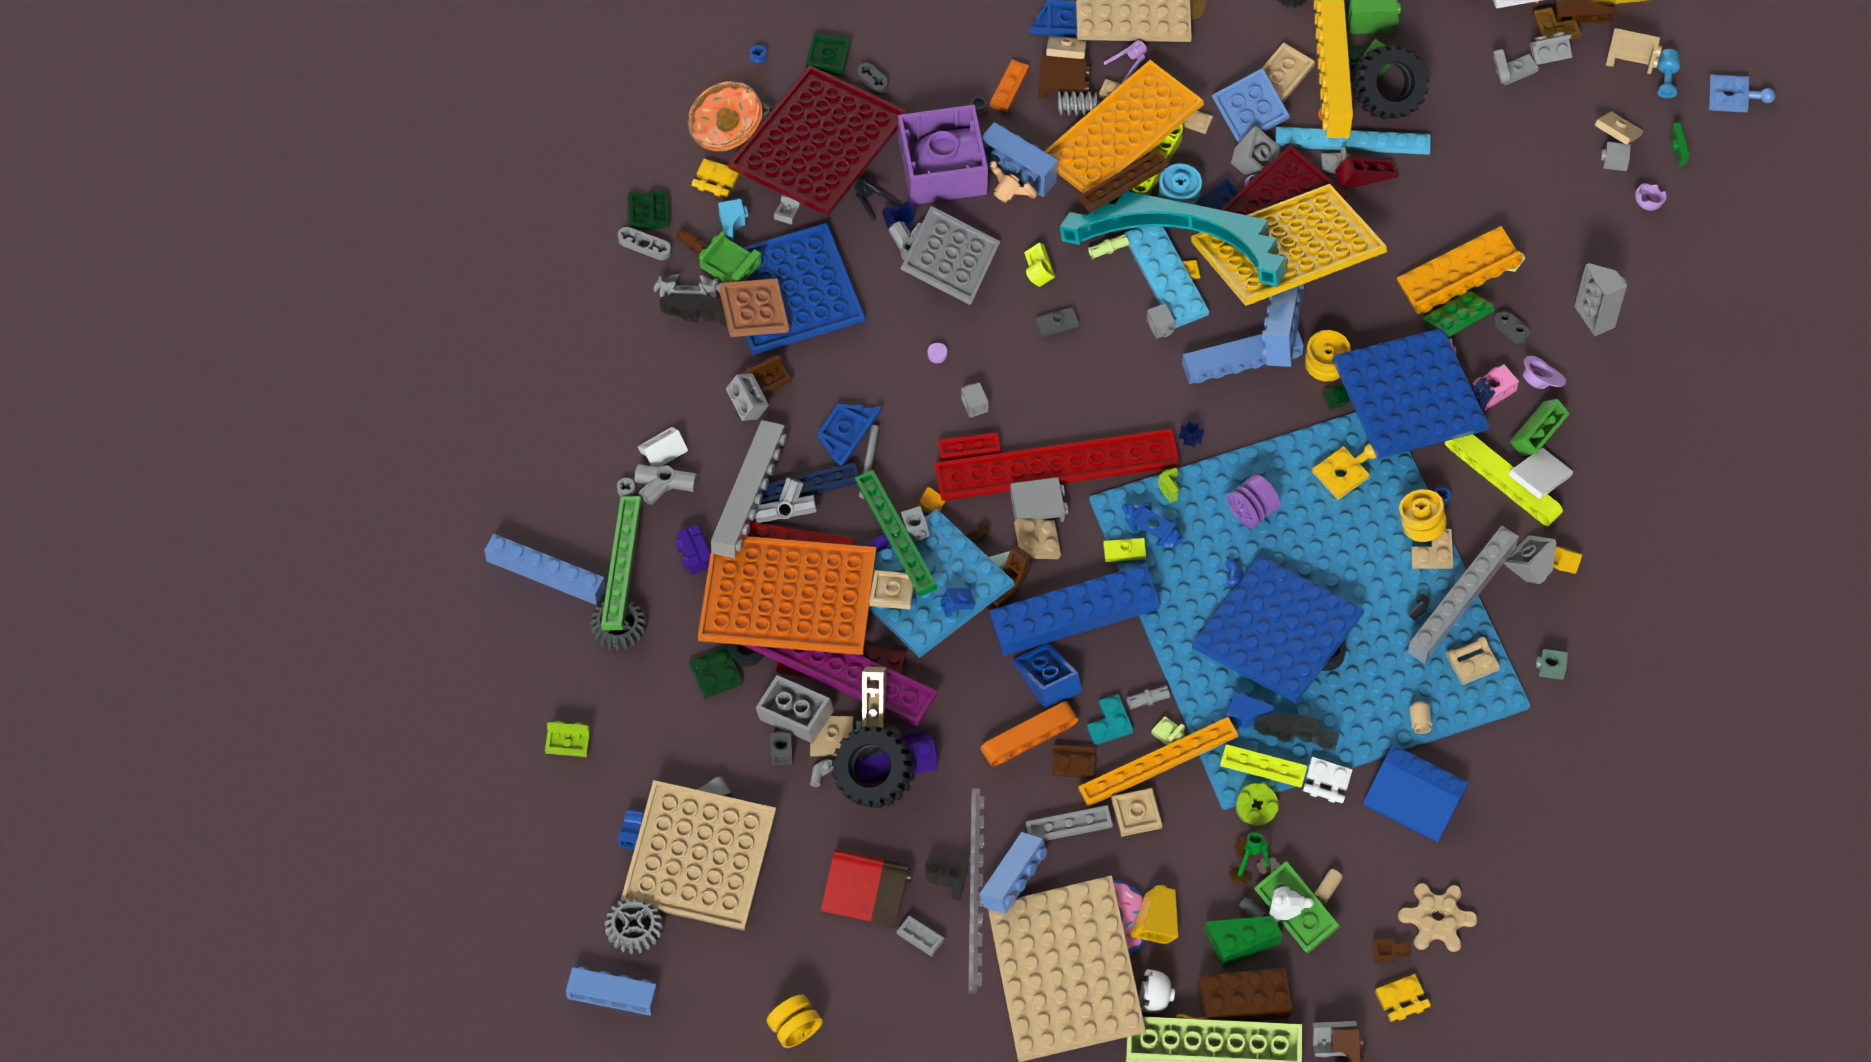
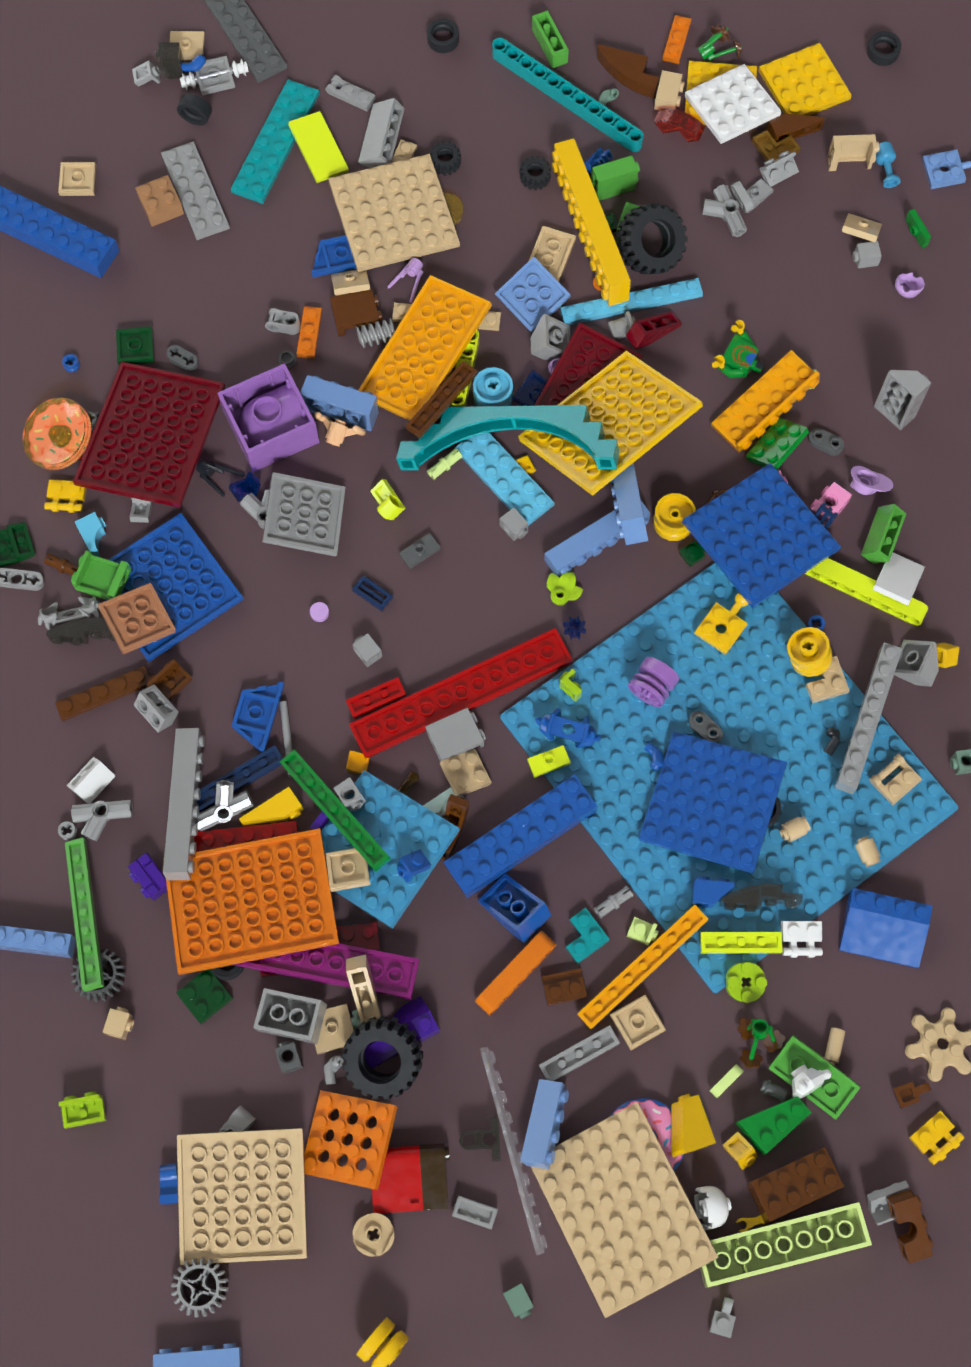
camera: 15 degrees left, 10 degrees up
(624, 673) = (118, 1023): none -> tan brick
(697, 371) = (102, 693): none -> reddish brown plate
(815, 916) = (362, 1238): none -> tan plate
(838, 852) = (360, 1131): none -> orange piece
(840, 521) = (276, 809): none -> yellow slope
(938, 1023) = (518, 1301): none -> sand green brick
(985, 69) = (280, 322): none -> light grey piece
(1005, 361) = (385, 602): none -> dark blue tile
(1194, 392) = (564, 585): none -> lime plate
(1201, 954) = (740, 1150): none -> yellow bracket
(1208, 888) = (726, 1081): none -> yellowish green beam
(1294, 559) = (704, 728): none -> dark grey plate
(1352, 676) = (794, 829): none -> tan brick
(1447, 220) = (739, 356): none -> green torso
(1481, 73) = (720, 207): none -> light grey piece

